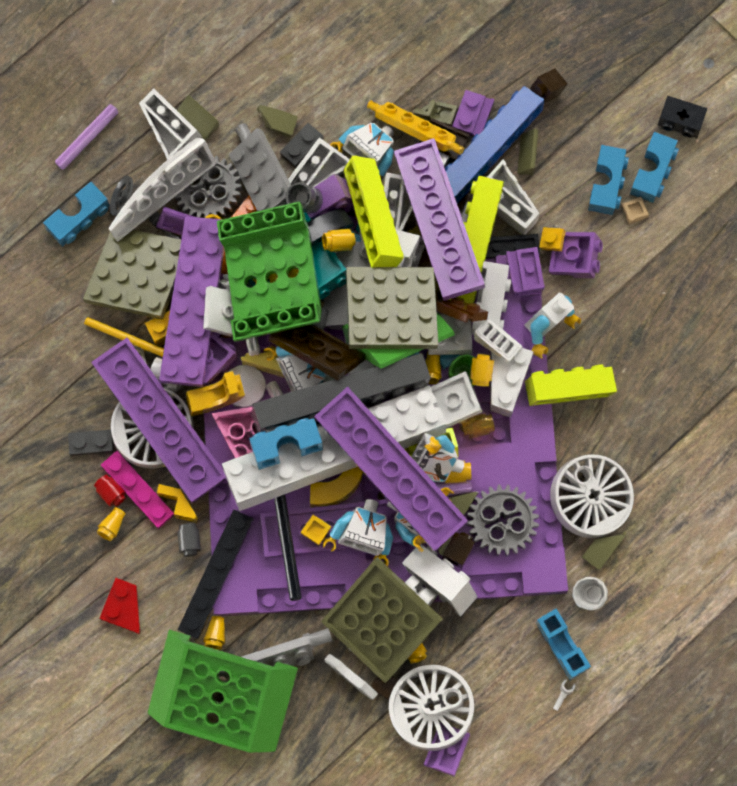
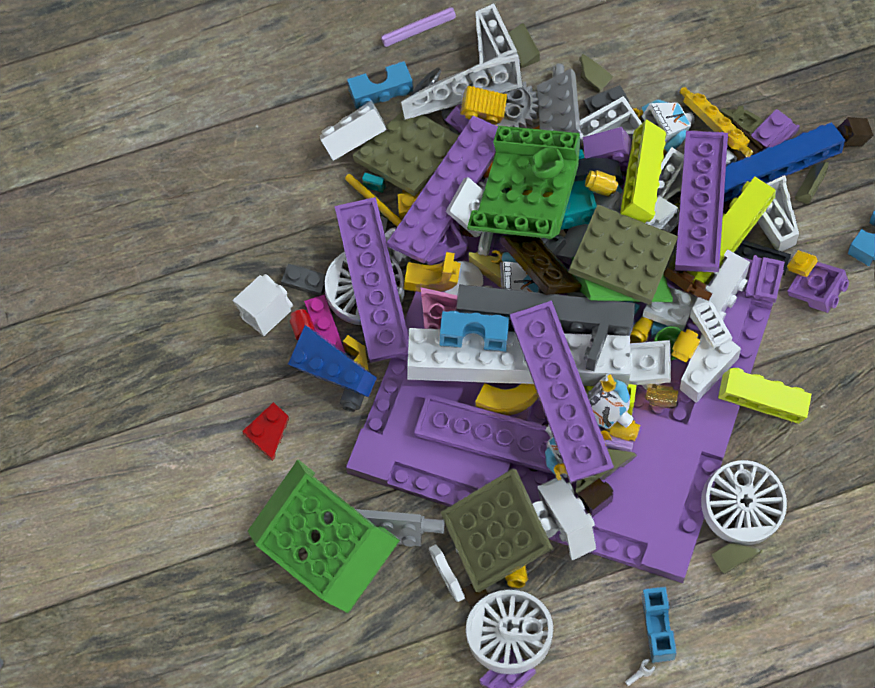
camera: 25 degrees right, 10 degrees down
(64, 486) = (263, 304): none -> white piece
(72, 273) = (352, 130): none -> white wedge
(111, 524) = (283, 356): yellow cone -> none
(114, 318) = (373, 182): none -> teal tile
(154, 520) = (325, 361): none -> blue wedge
(189, 200) = (483, 104): none -> yellow brick
(215, 574) = (363, 432): black plate -> none
(215, 633) = (342, 483): yellow cone -> none
(282, 244) = (547, 163): none -> bright green hair
(287, 548) = (438, 431): black axle -> none
(309, 196) = (590, 137): dark grey wheel -> none
(316, 530) = (470, 426): yellow plate -> none
(363, 531) = (514, 443): torso -> none
(405, 420) = (598, 338): none -> dark grey plate
(511, 538) = (649, 507): light grey gear -> none
(549, 317) = (768, 326): torso -> none
(590, 593) = (704, 589): white hair -> none

